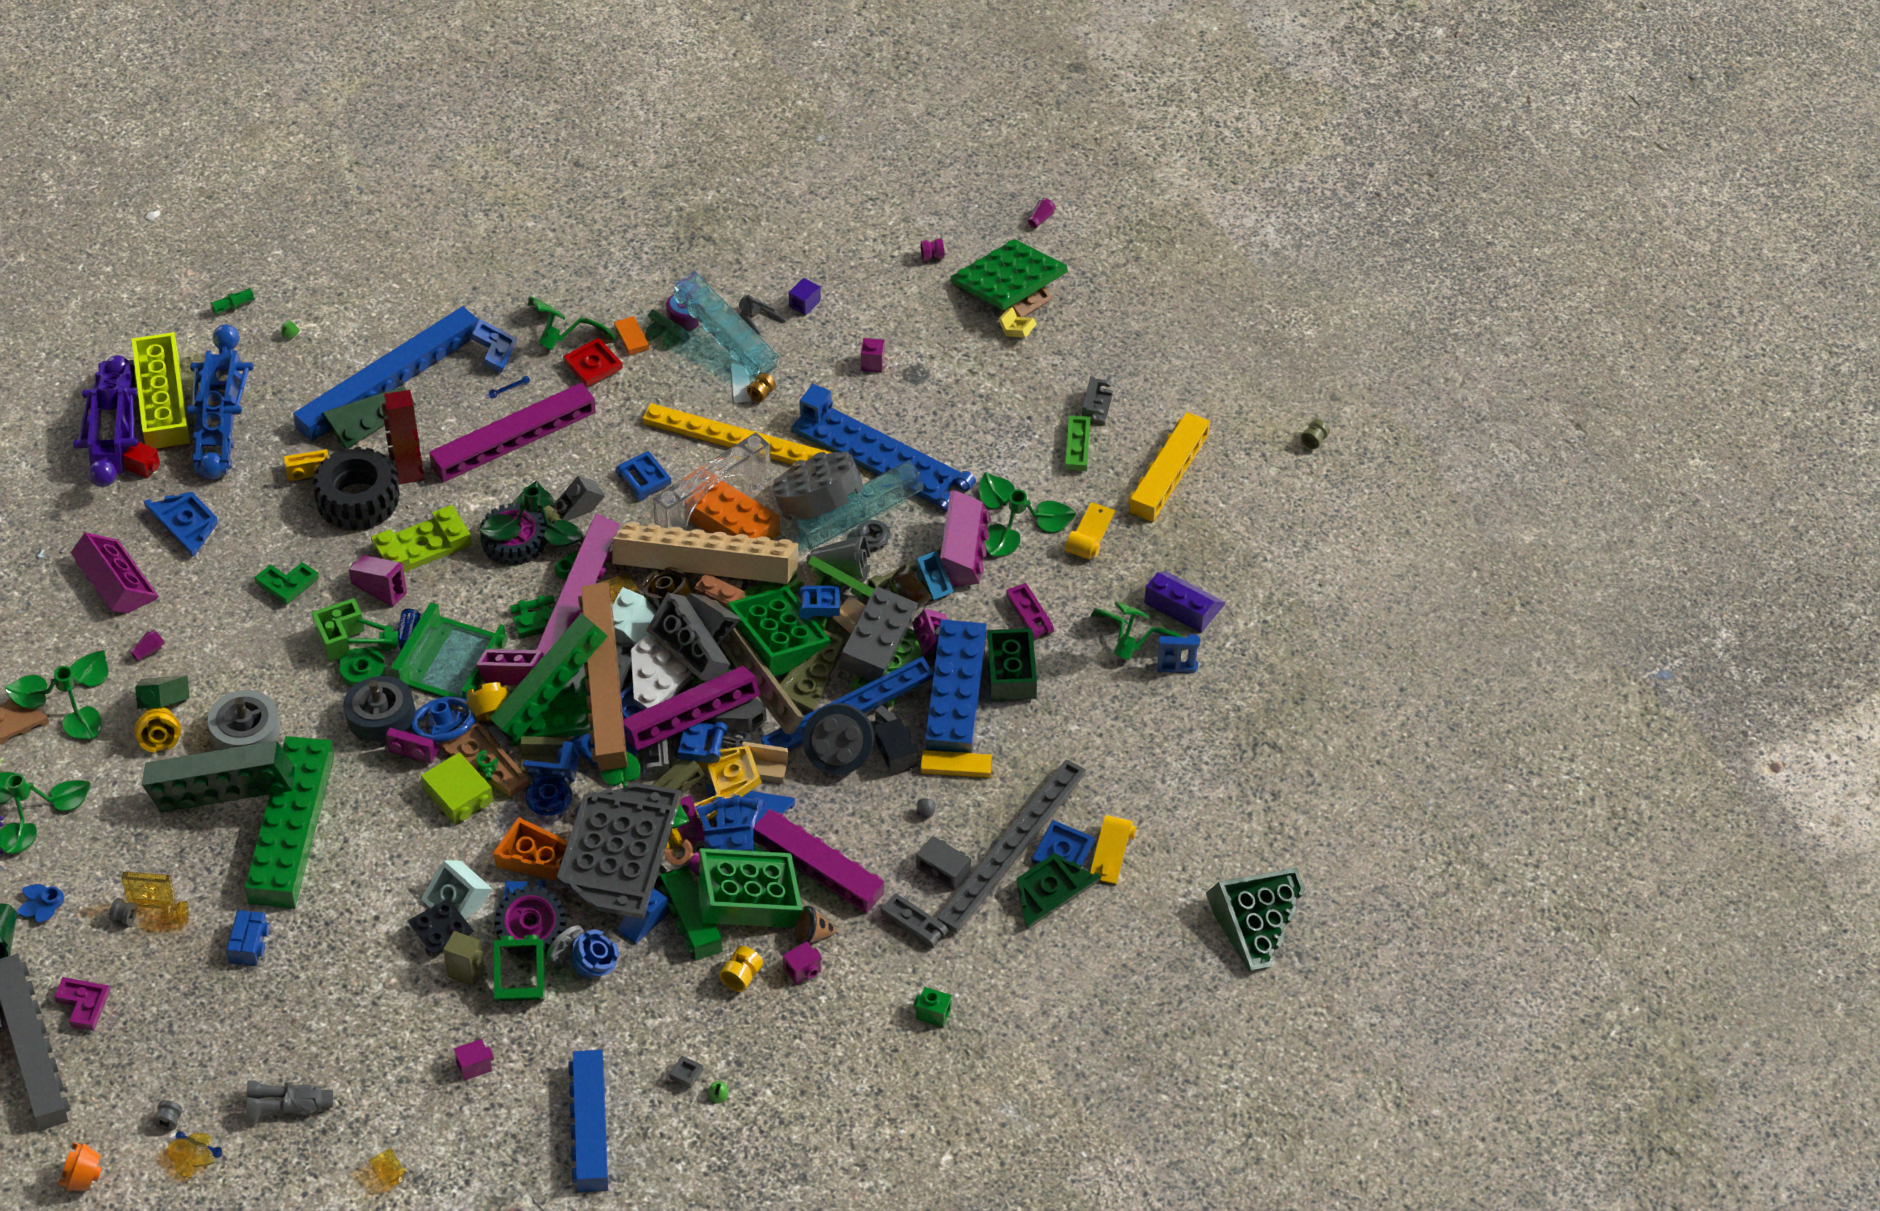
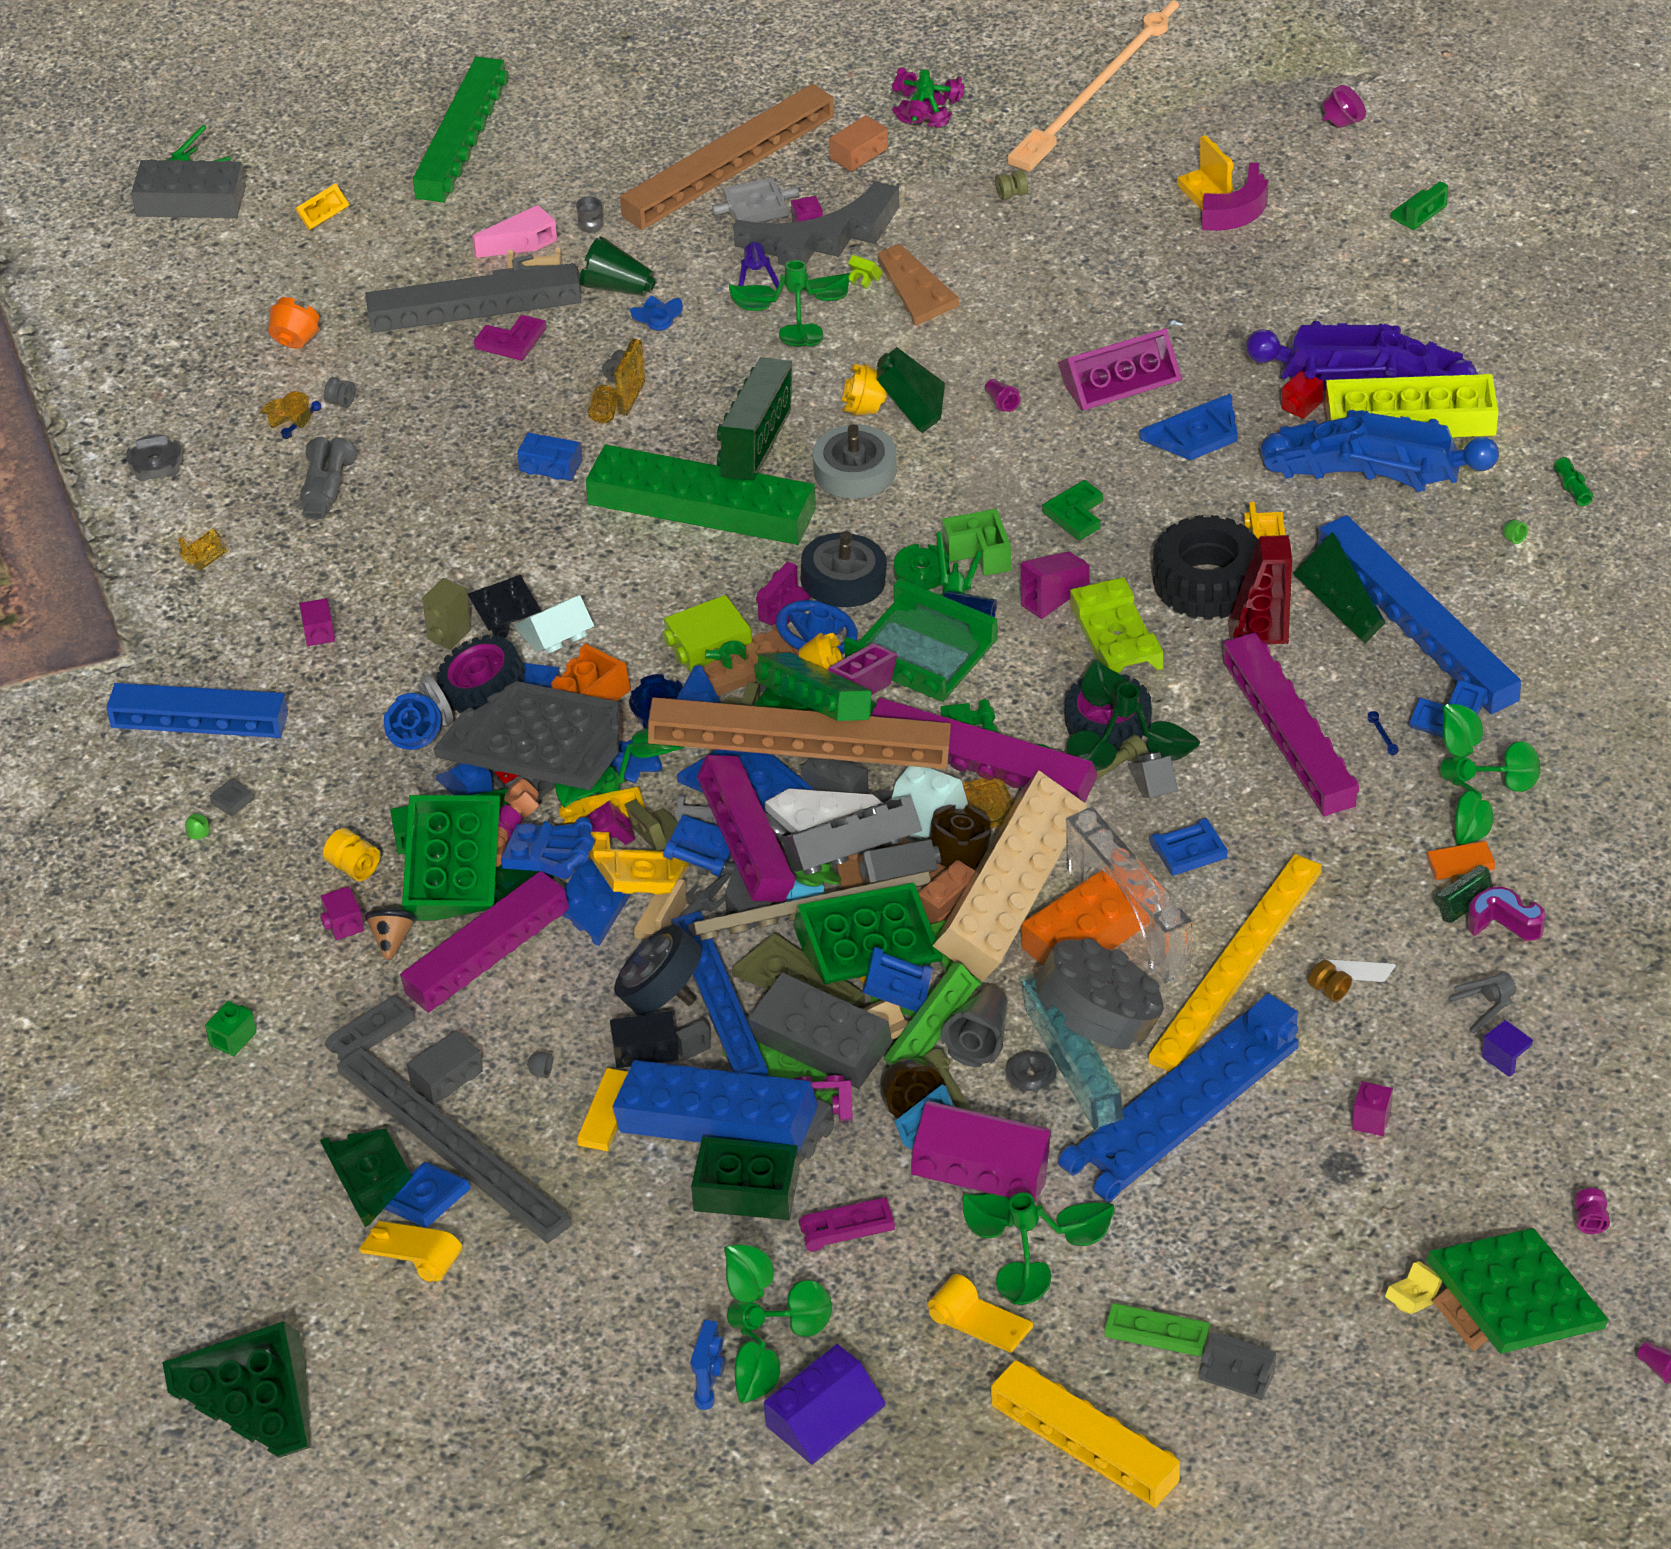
camera: 105 degrees right, 5 degrees down
(90, 670) = (945, 299): green plant -> none
(519, 994) = (397, 674): green window -> none
(592, 362) = (1409, 813): red plate -> none
(725, 325) = (1441, 940): clear light blue brick -> none

